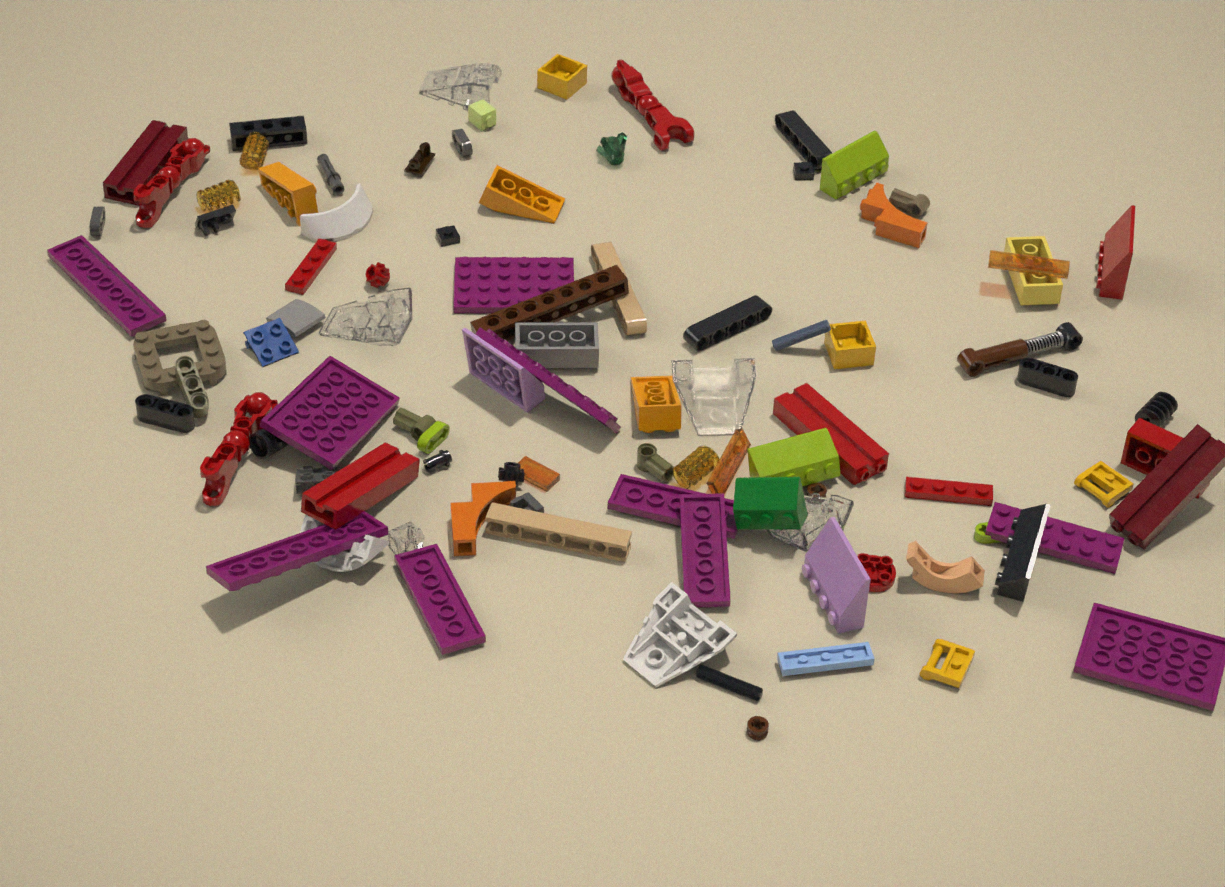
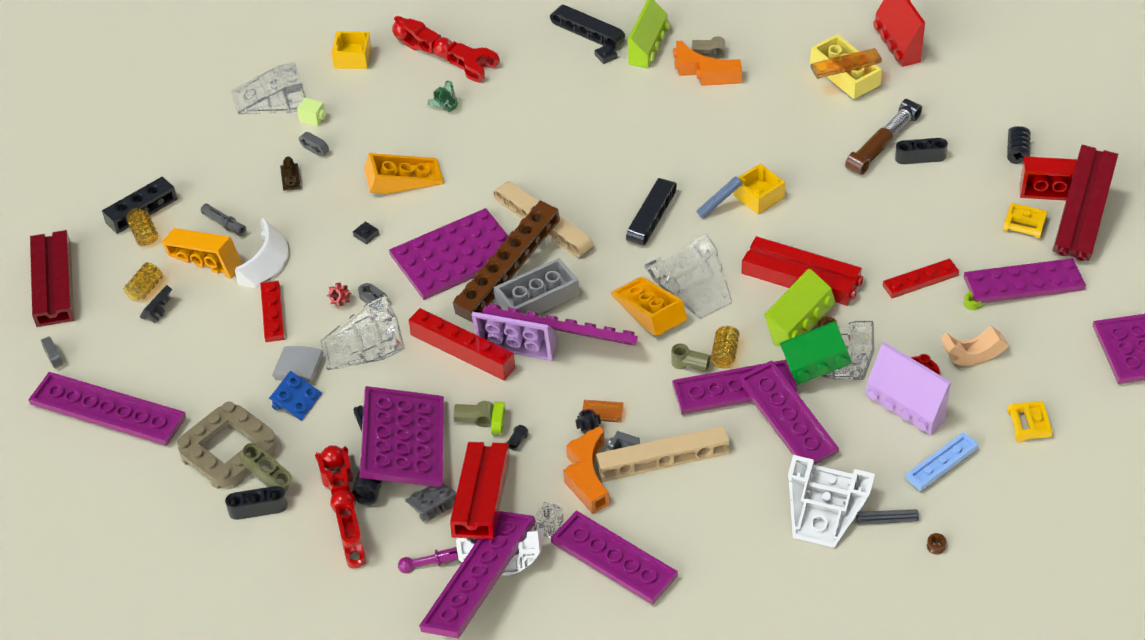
camera: 25 degrees left, 5 degrees up
(158, 189) = (87, 283): red piece -> none
(253, 522) = (407, 564): none -> magenta pin
(411, 283) = (364, 294): none -> dark grey beam
(452, 361) = (462, 344): none -> red brick
(729, 462) = (746, 332): clear orange tile -> none
(1022, 552) = (1022, 303): black slope -> none

